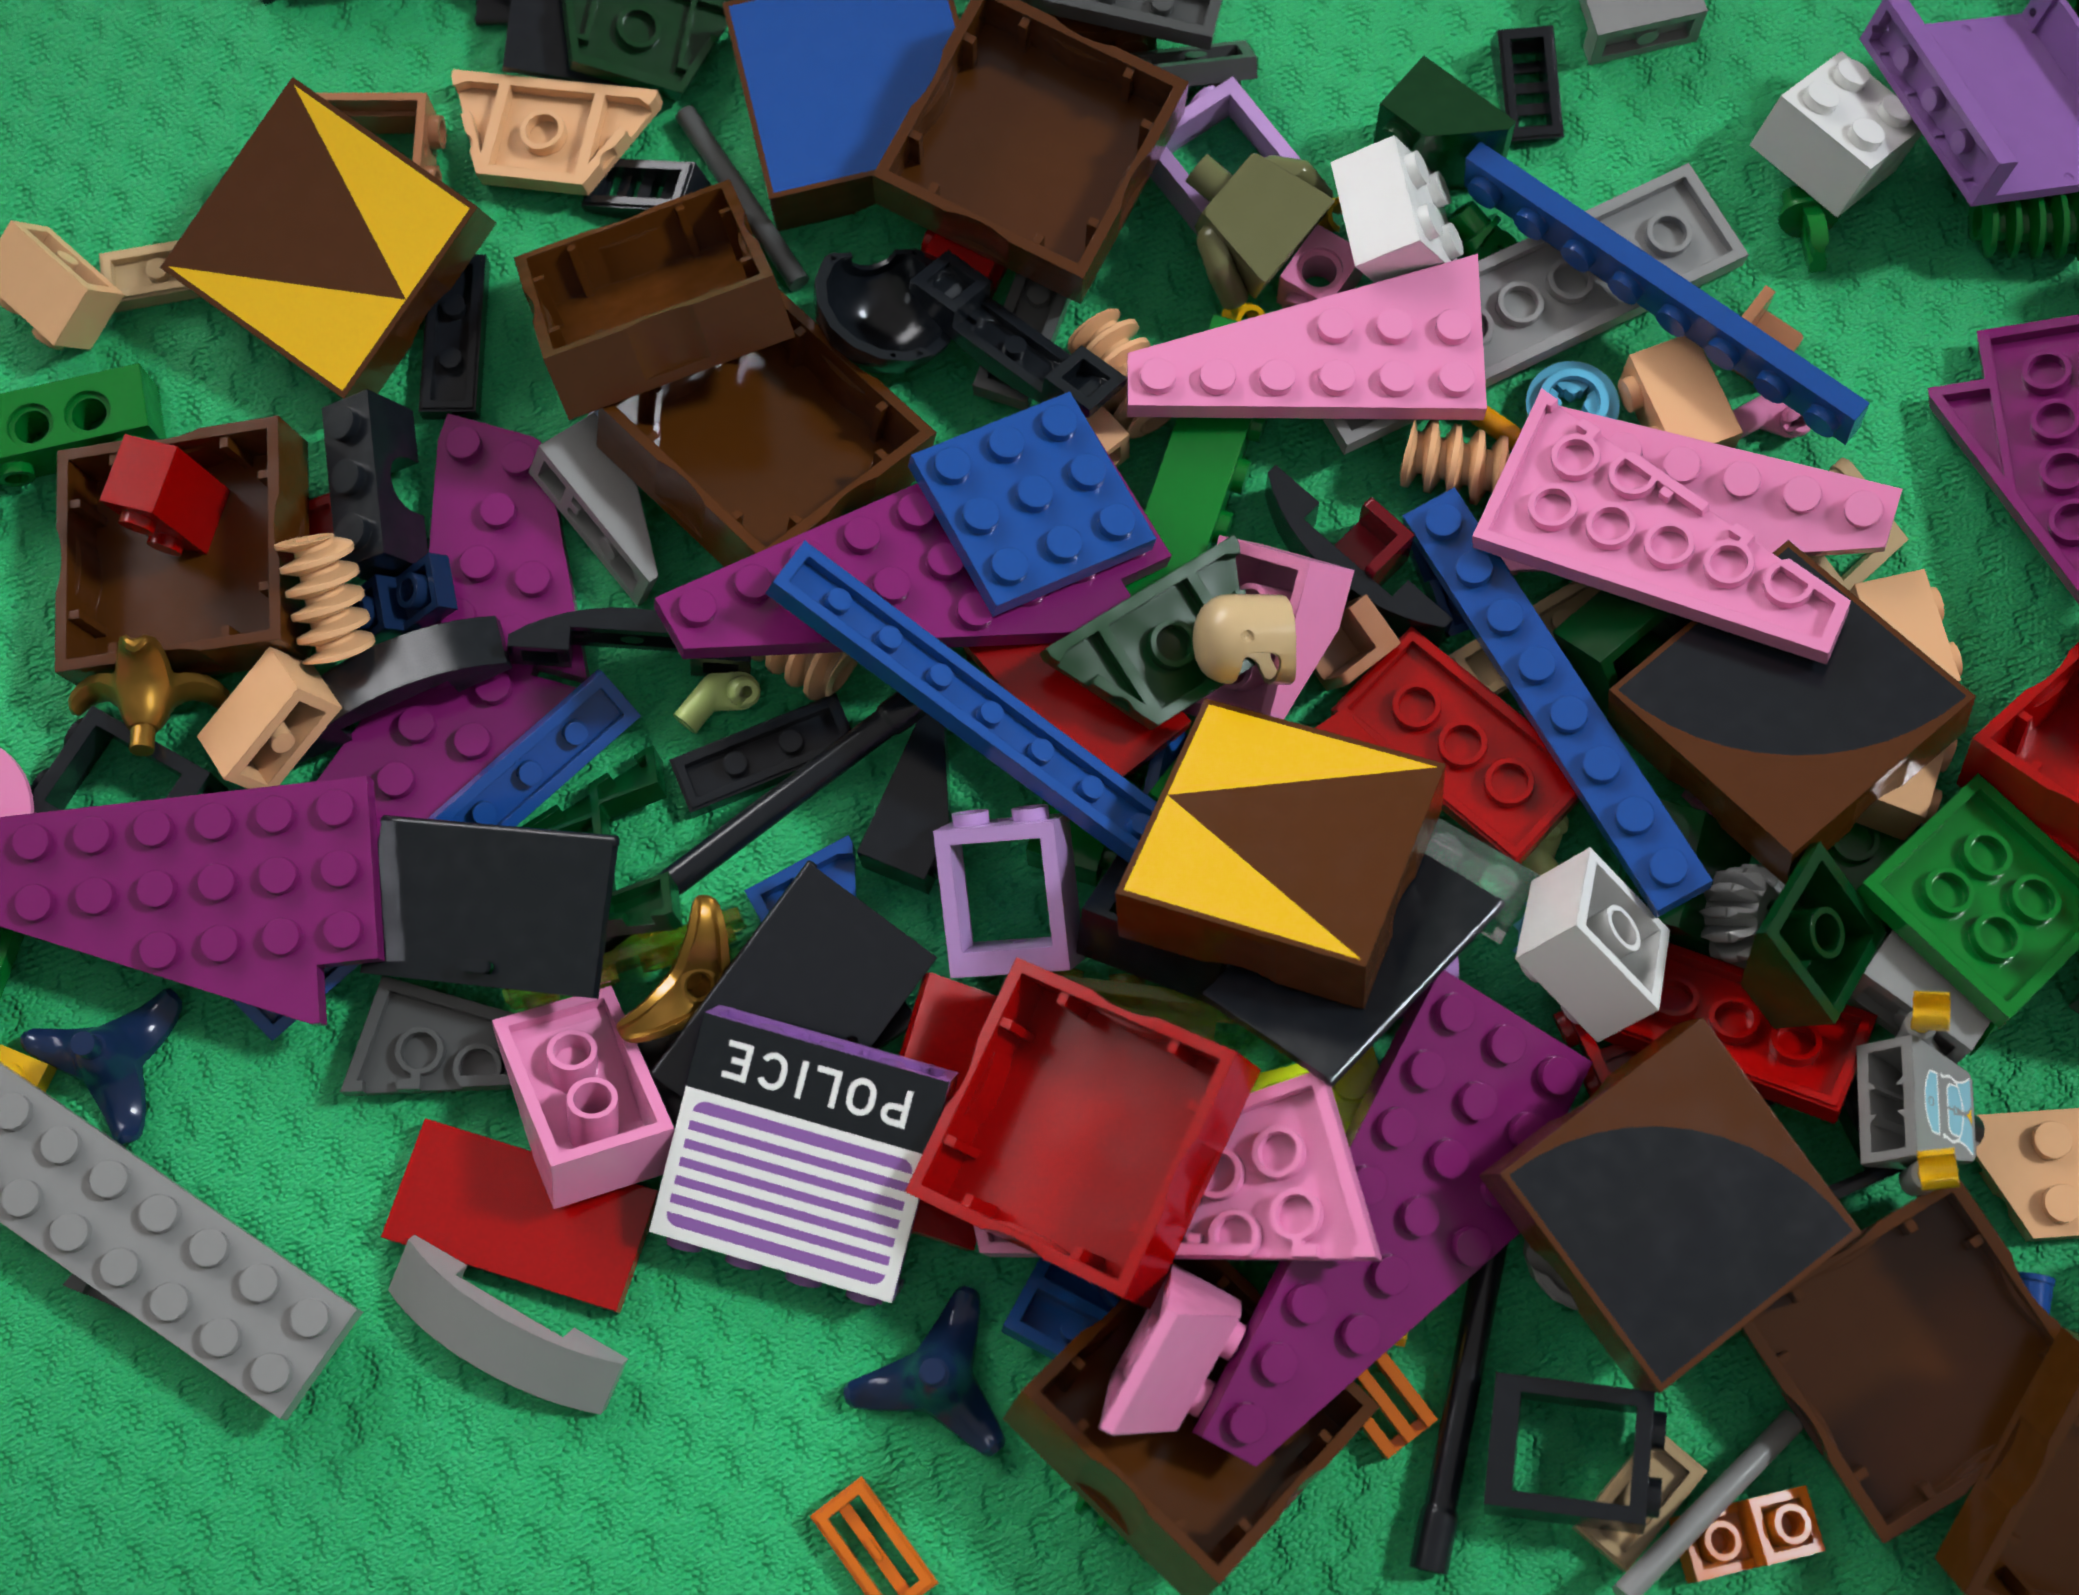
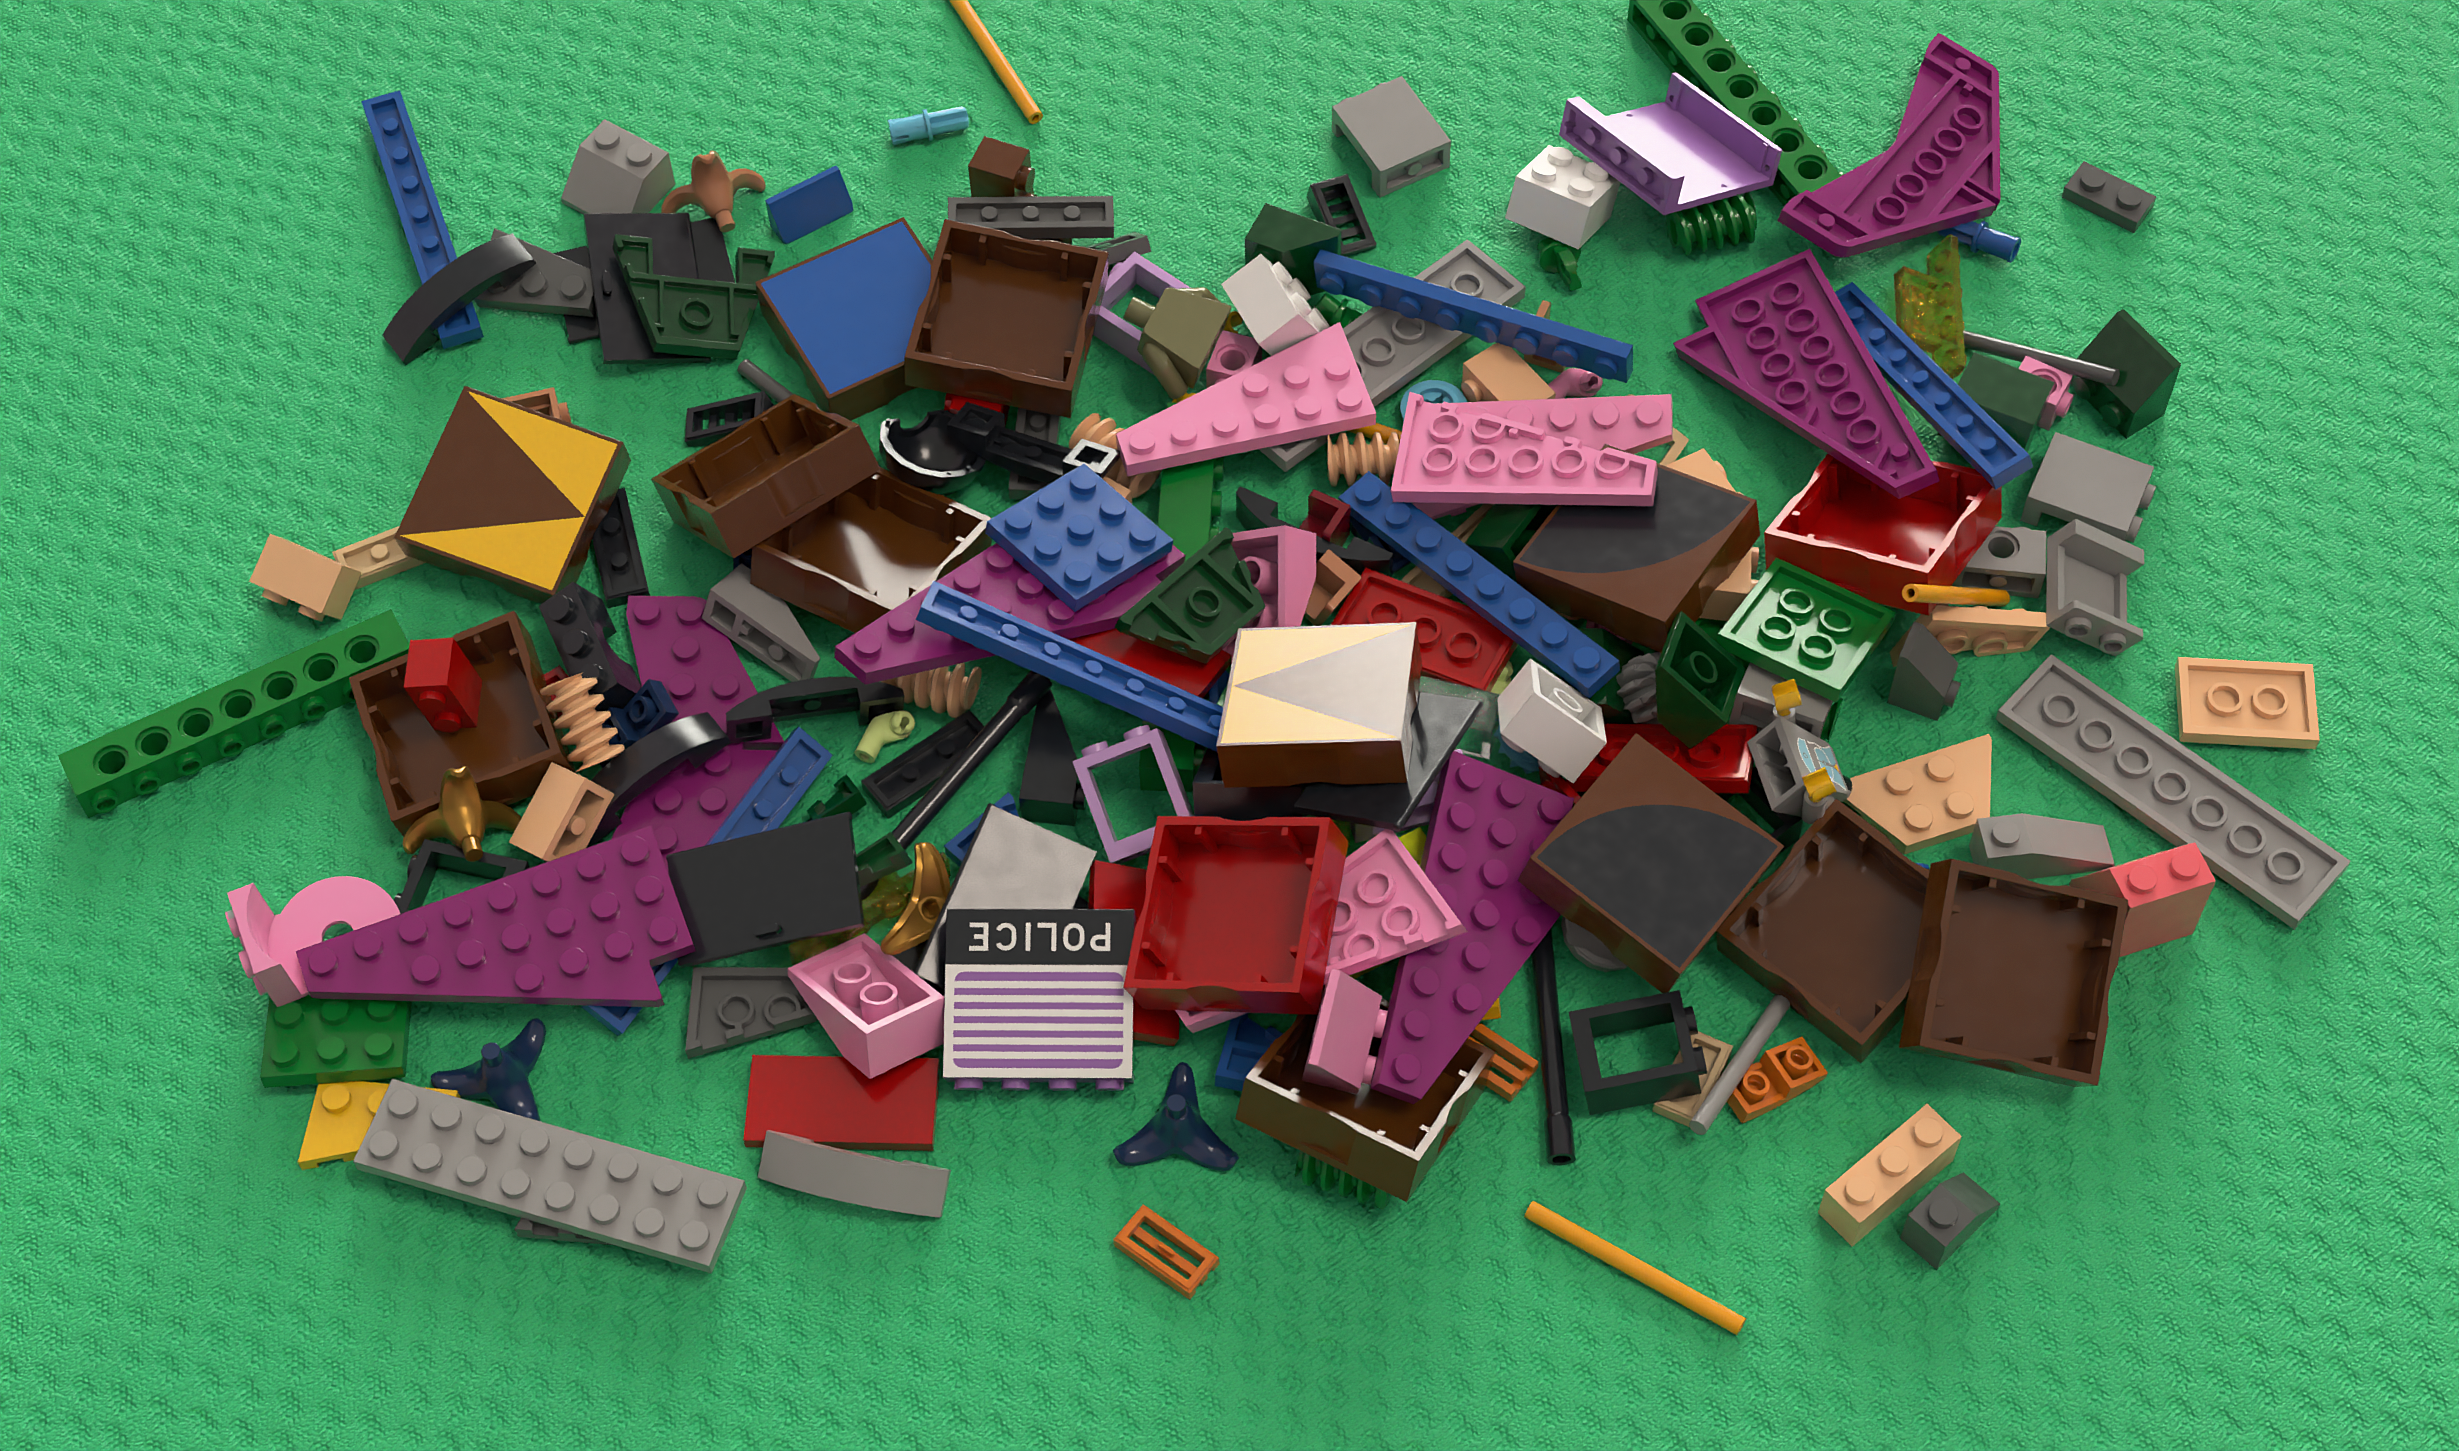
camera: 20 degrees left, 15 degrees down
(549, 130) = (647, 396): light nougat wing -> none
(1242, 628) = (1246, 579): tan helmet -> none

